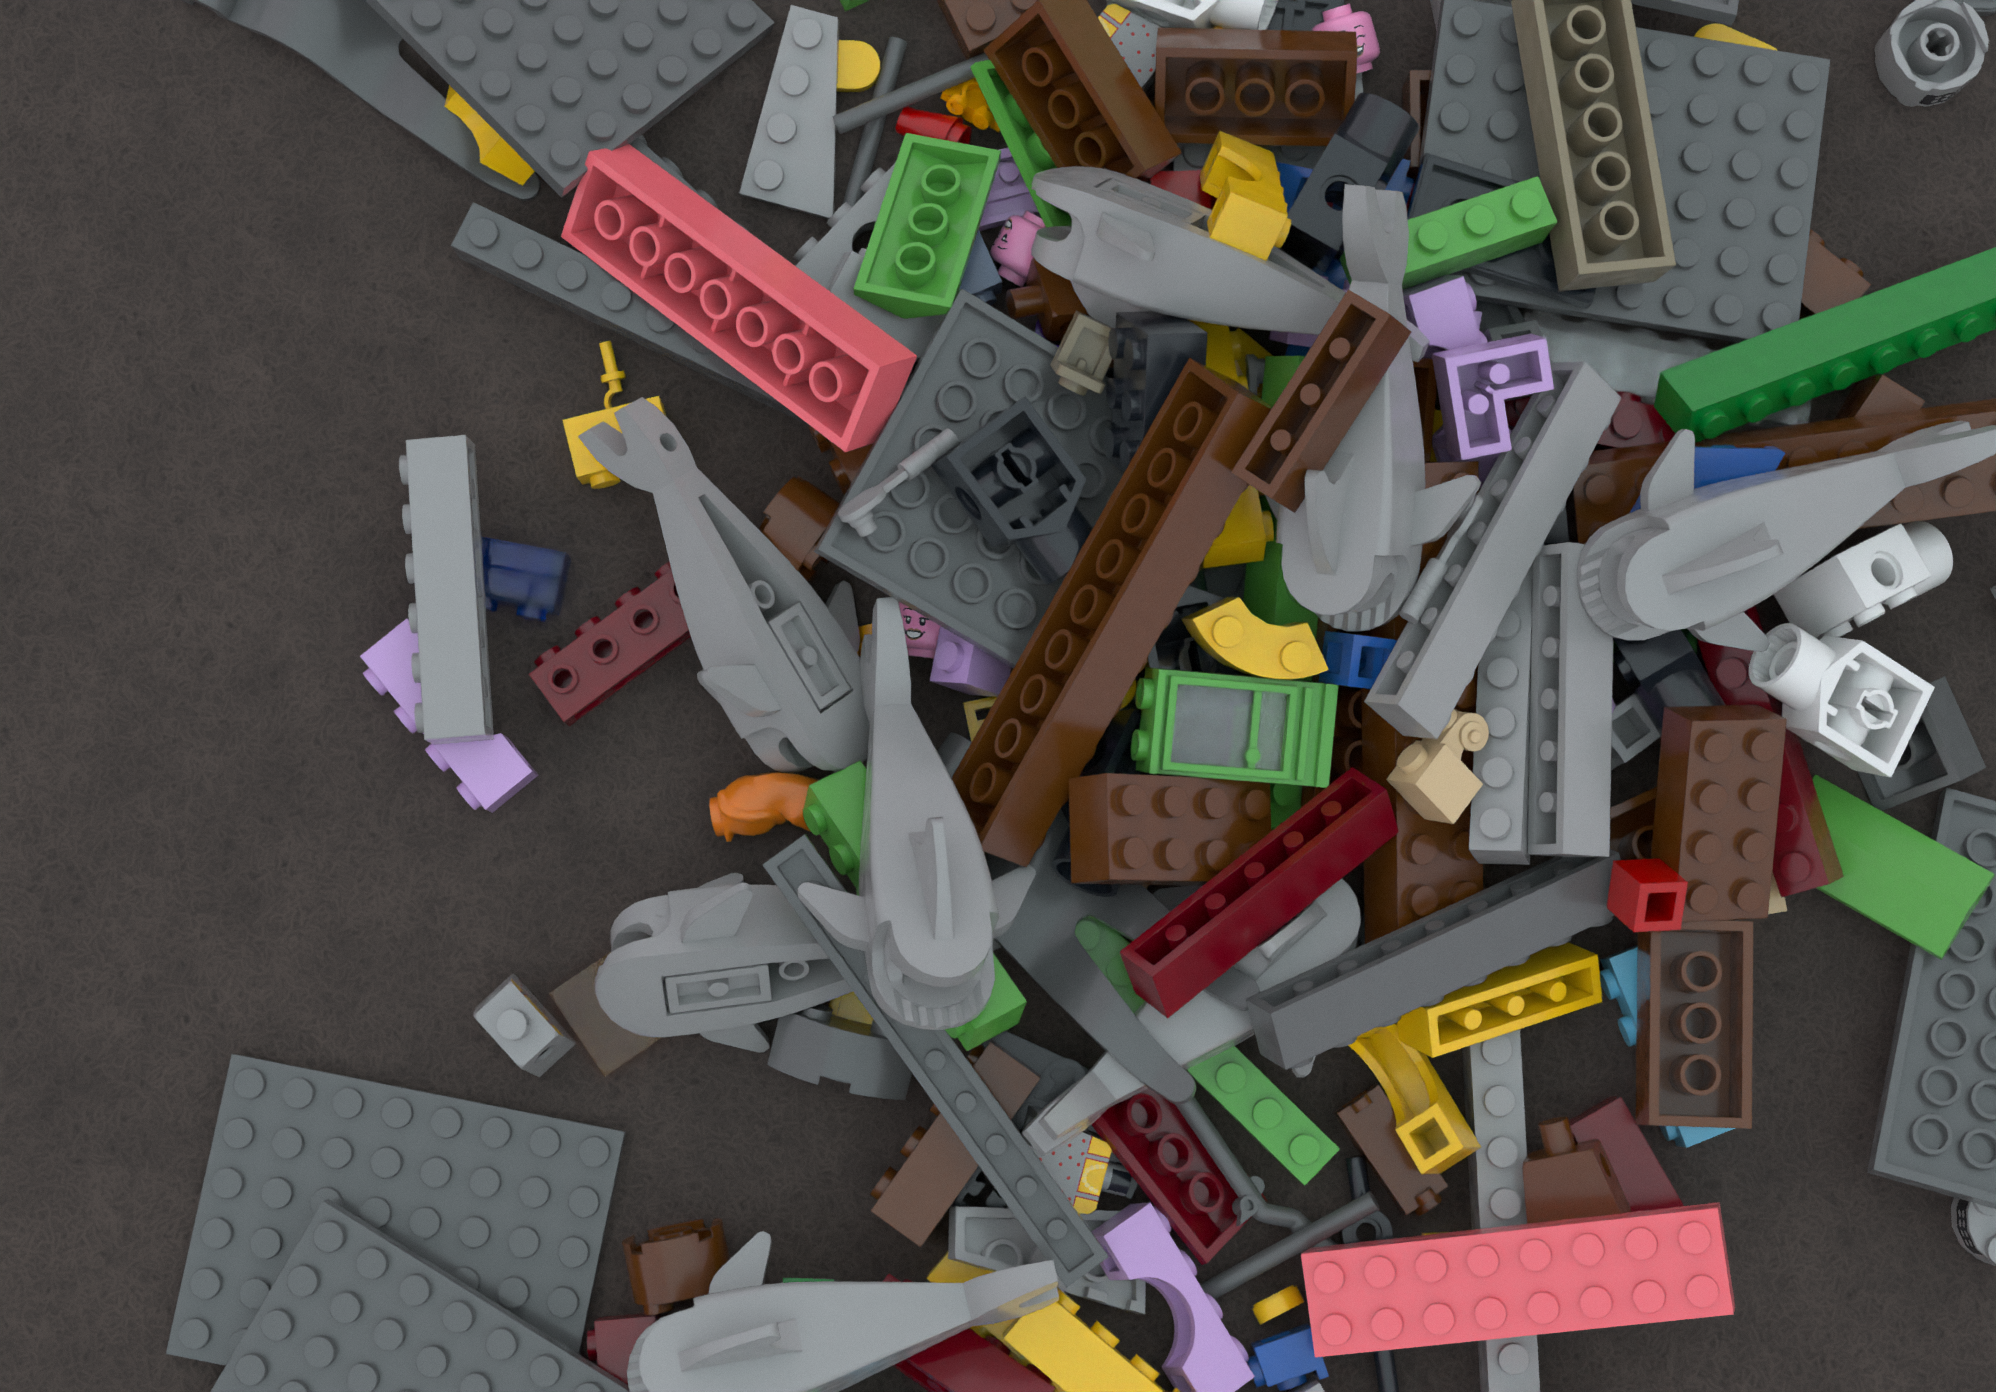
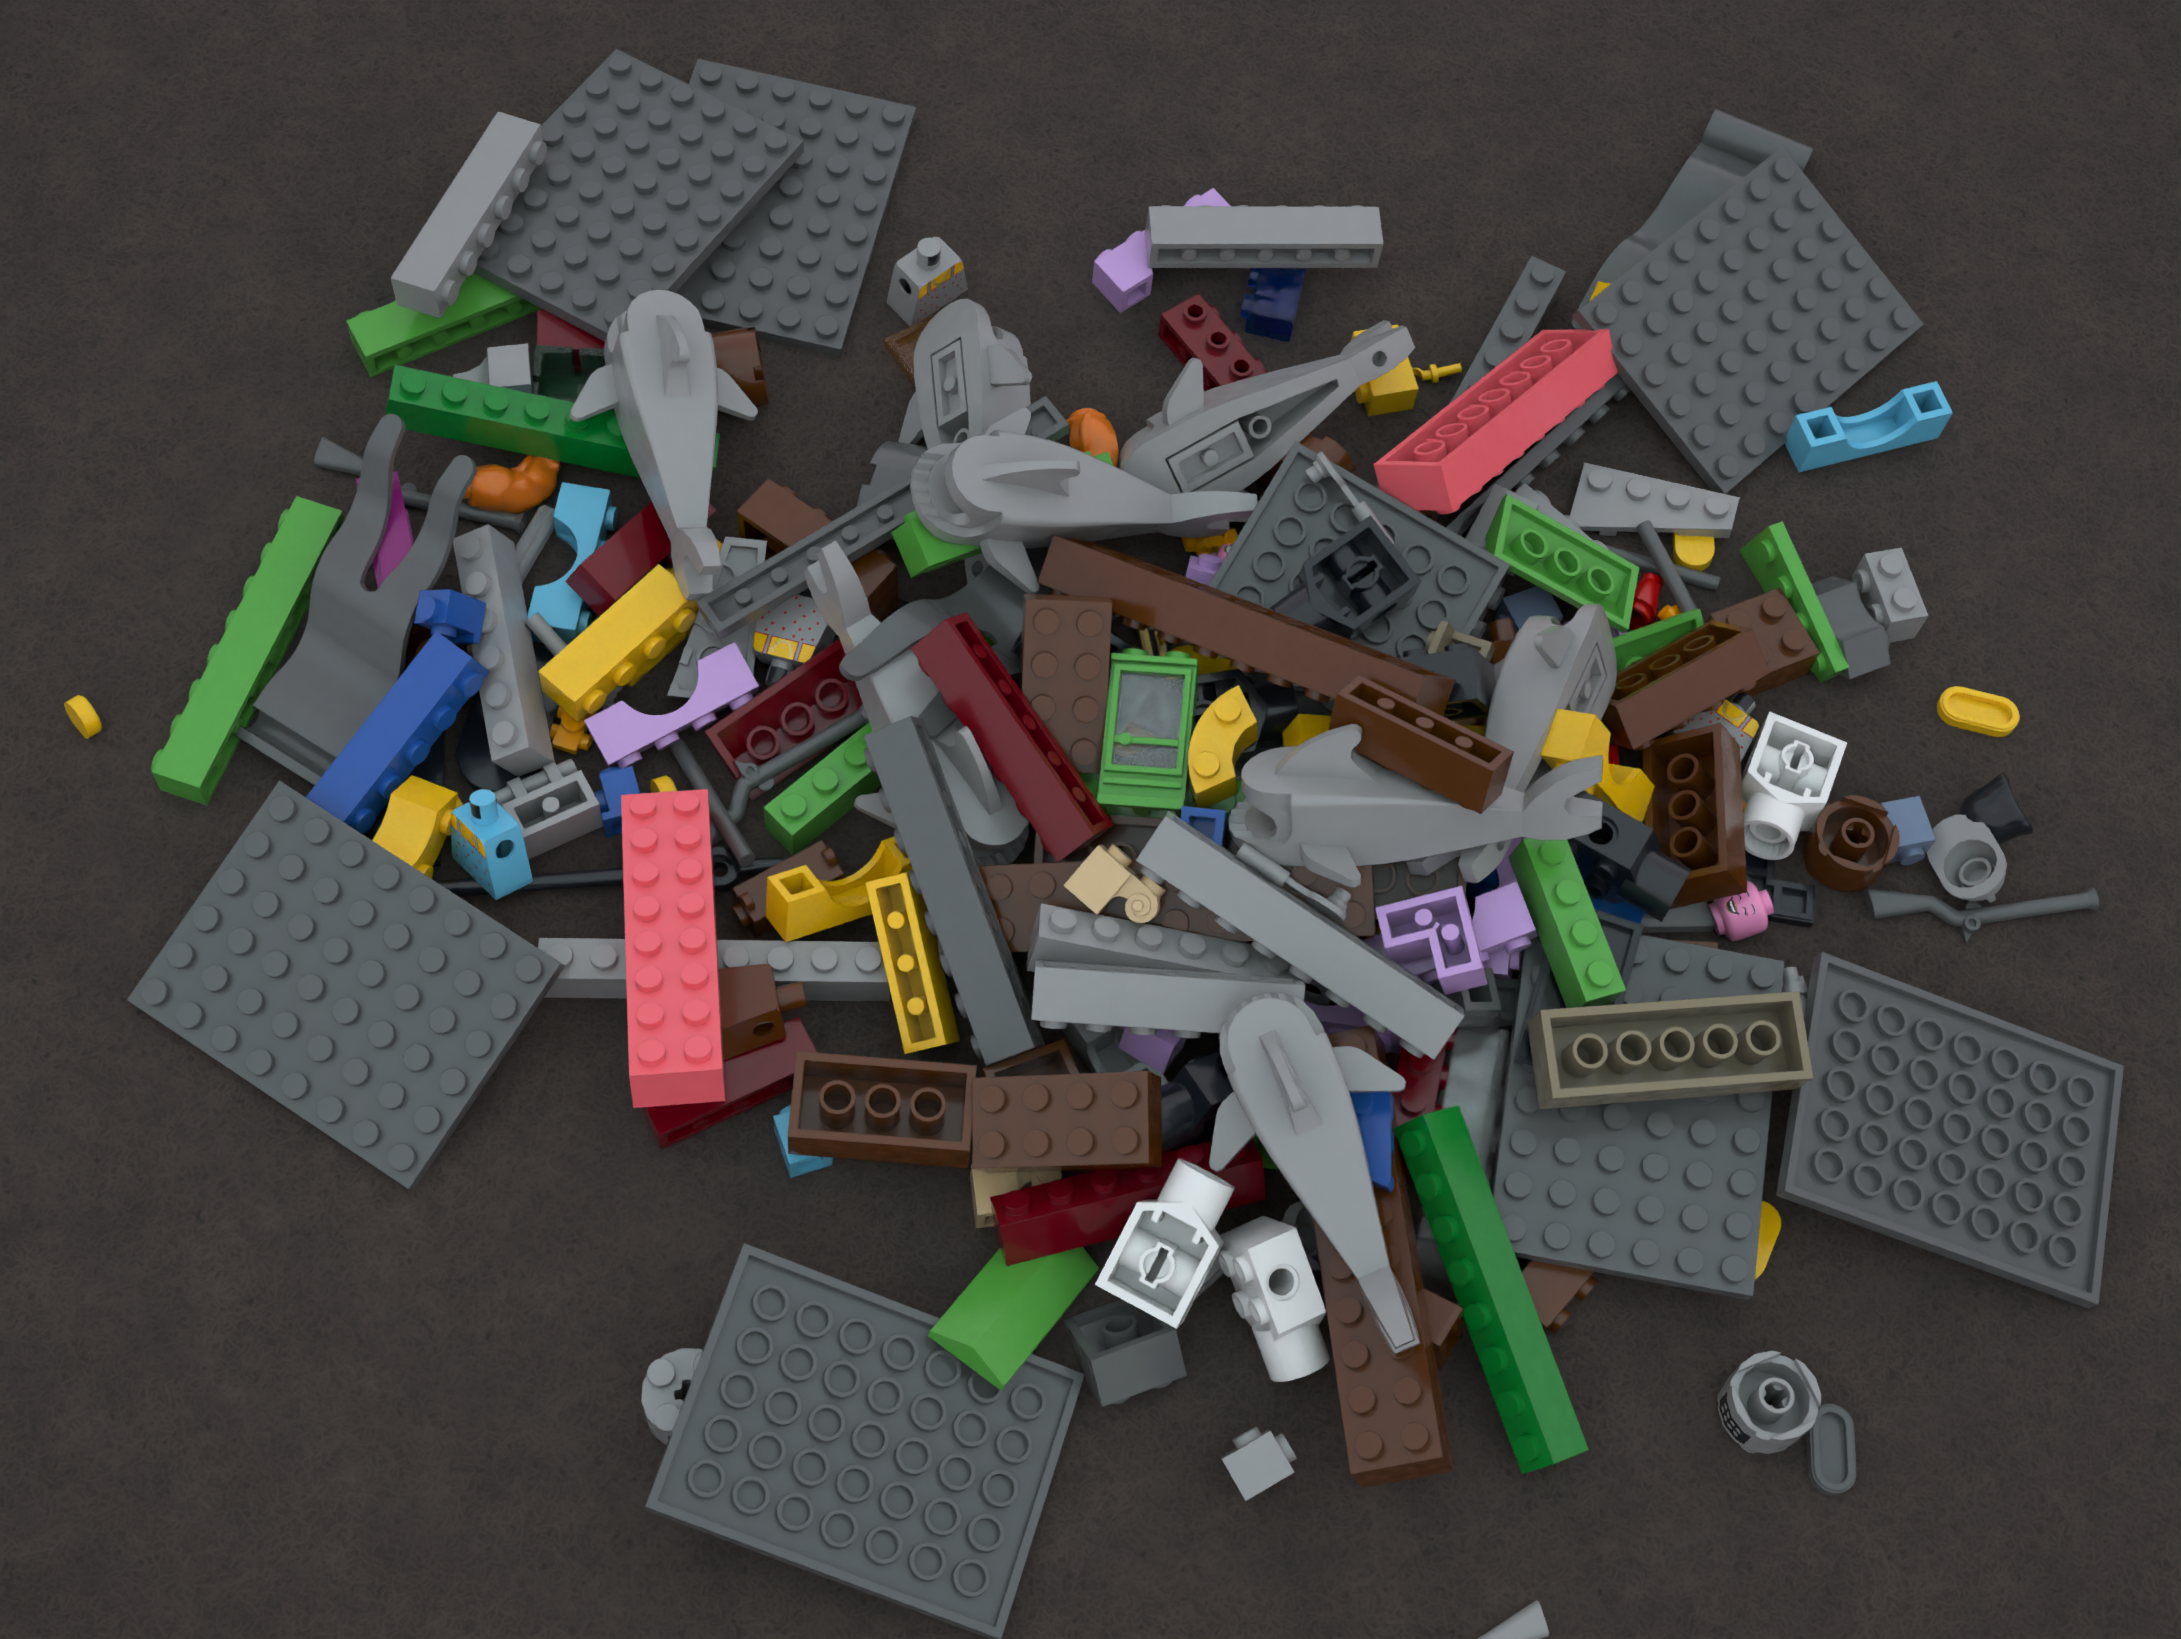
camera: 85 degrees right, 20 degrees down
(1646, 895) = (996, 1053): red brick -> none

